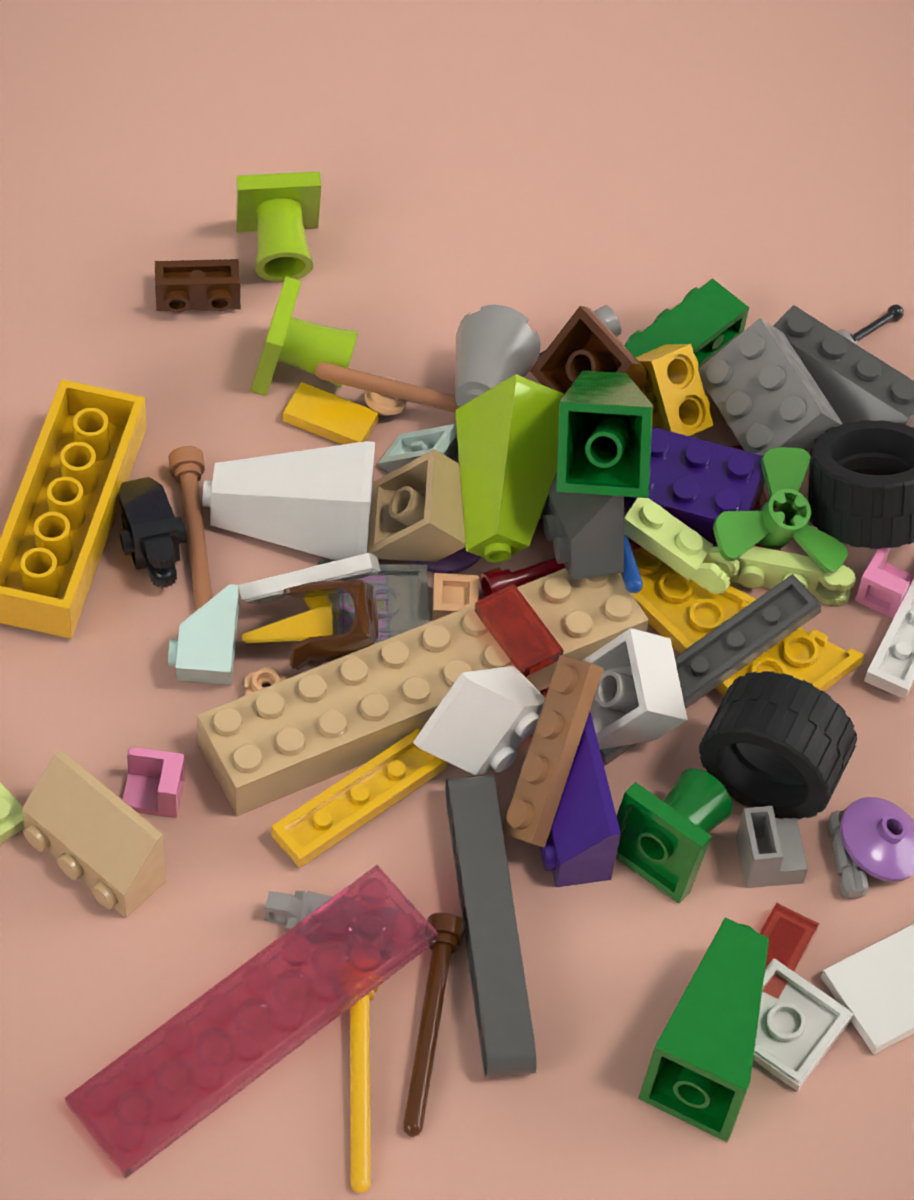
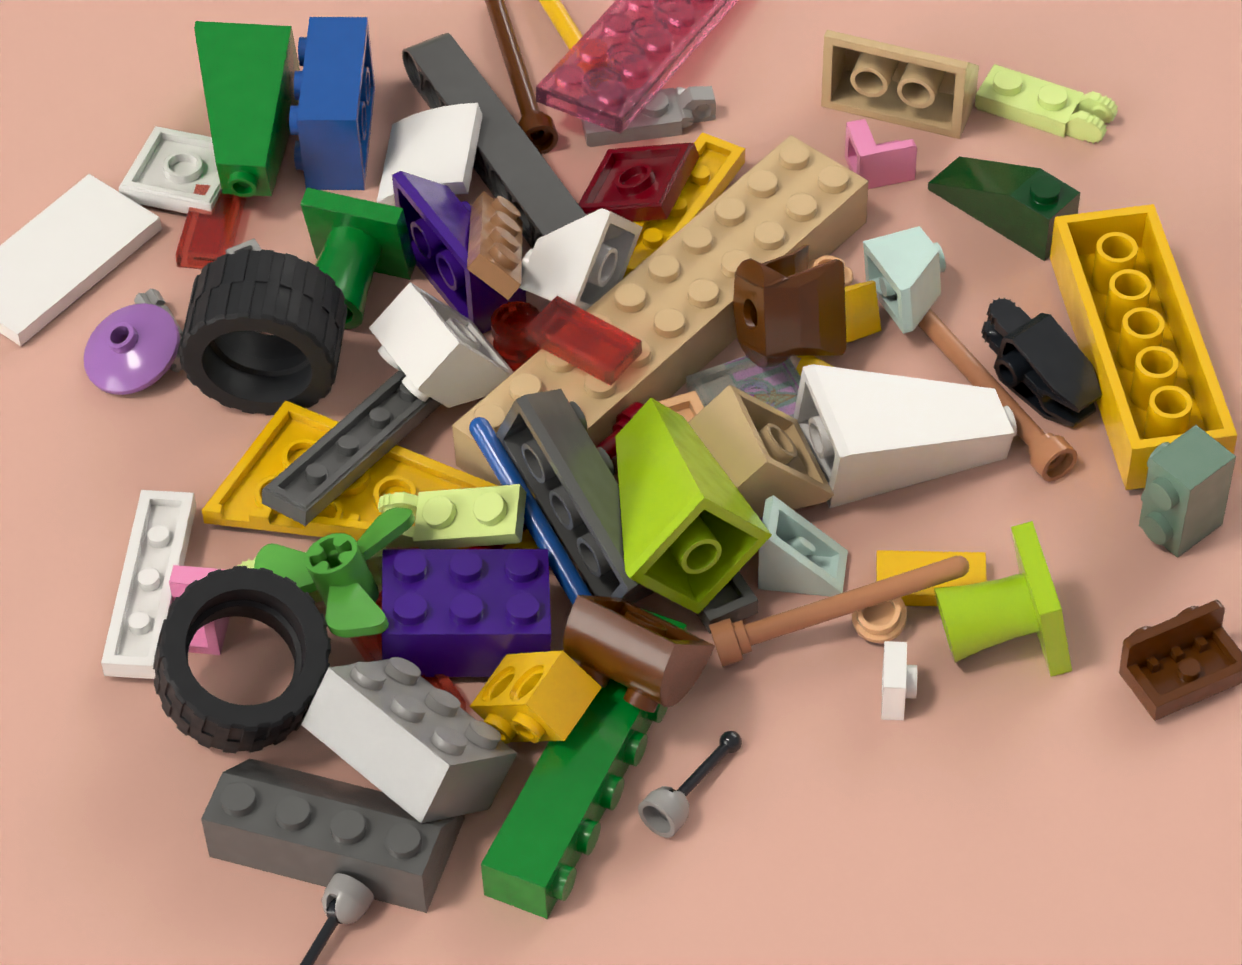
camera: 165 degrees right, 5 degrees down
(75, 694) = (1008, 199): none -> dark green slope
(122, 361) = (1186, 490): none -> sand green brick
(279, 210) = (1140, 767): lime plant -> none
(343, 570) = (853, 343): white tile -> none
(385, 823) = (640, 181): none -> dark red tile
(402, 343) = (898, 680): none -> white plate
(492, 349) = (768, 647): light grey cone -> none
(559, 924) = (434, 146): none -> white slope
(604, 437) = (574, 469): green slope -> none
(629, 1001) = (334, 103): none -> blue brick

